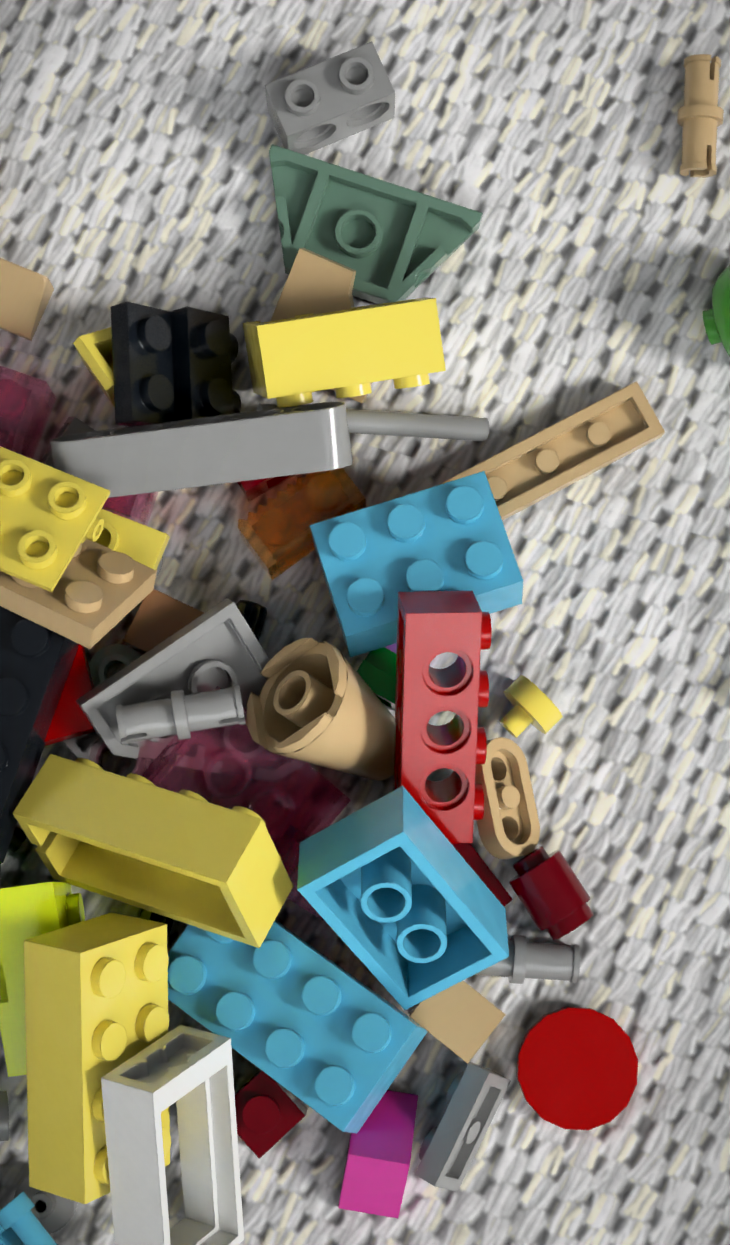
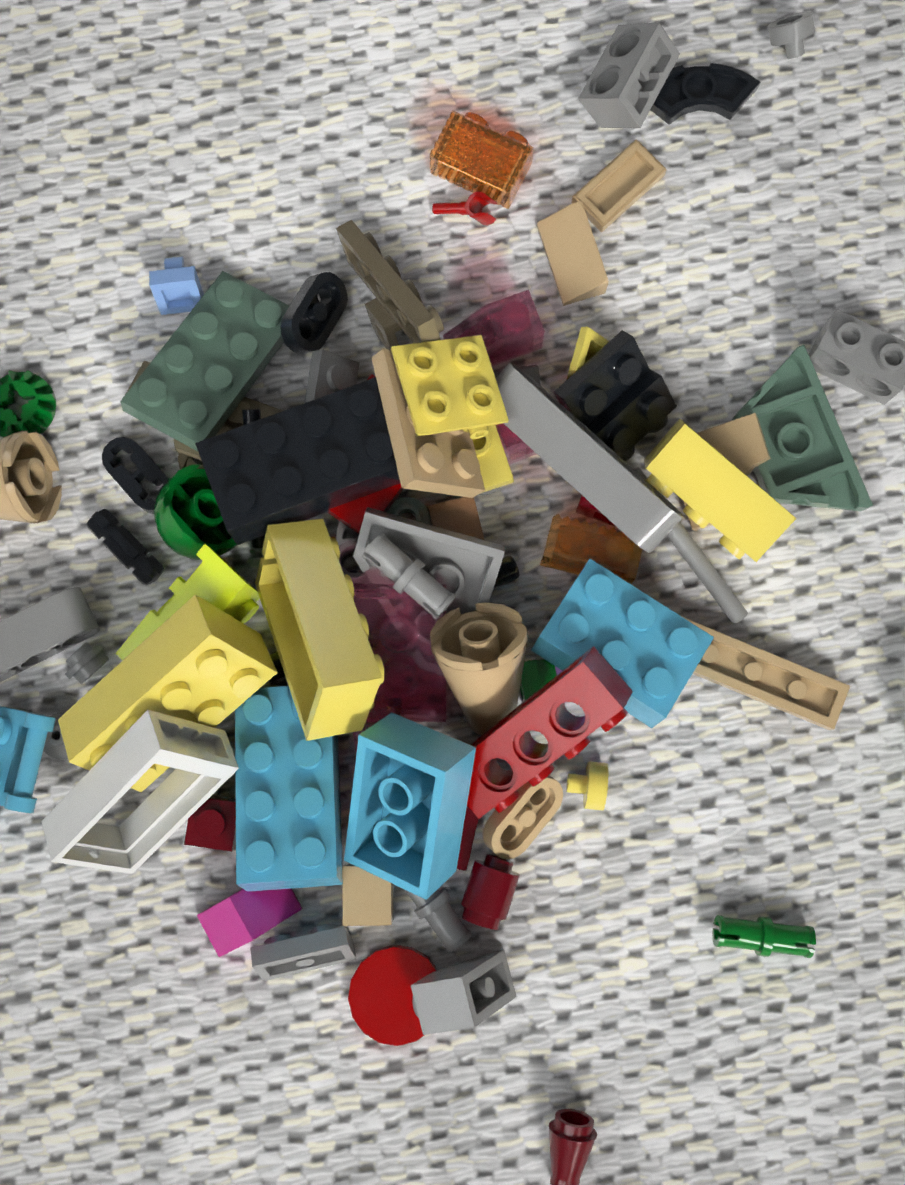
camera: 55 degrees right, 0 degrees up
(627, 998) = (463, 993): none -> light grey slope

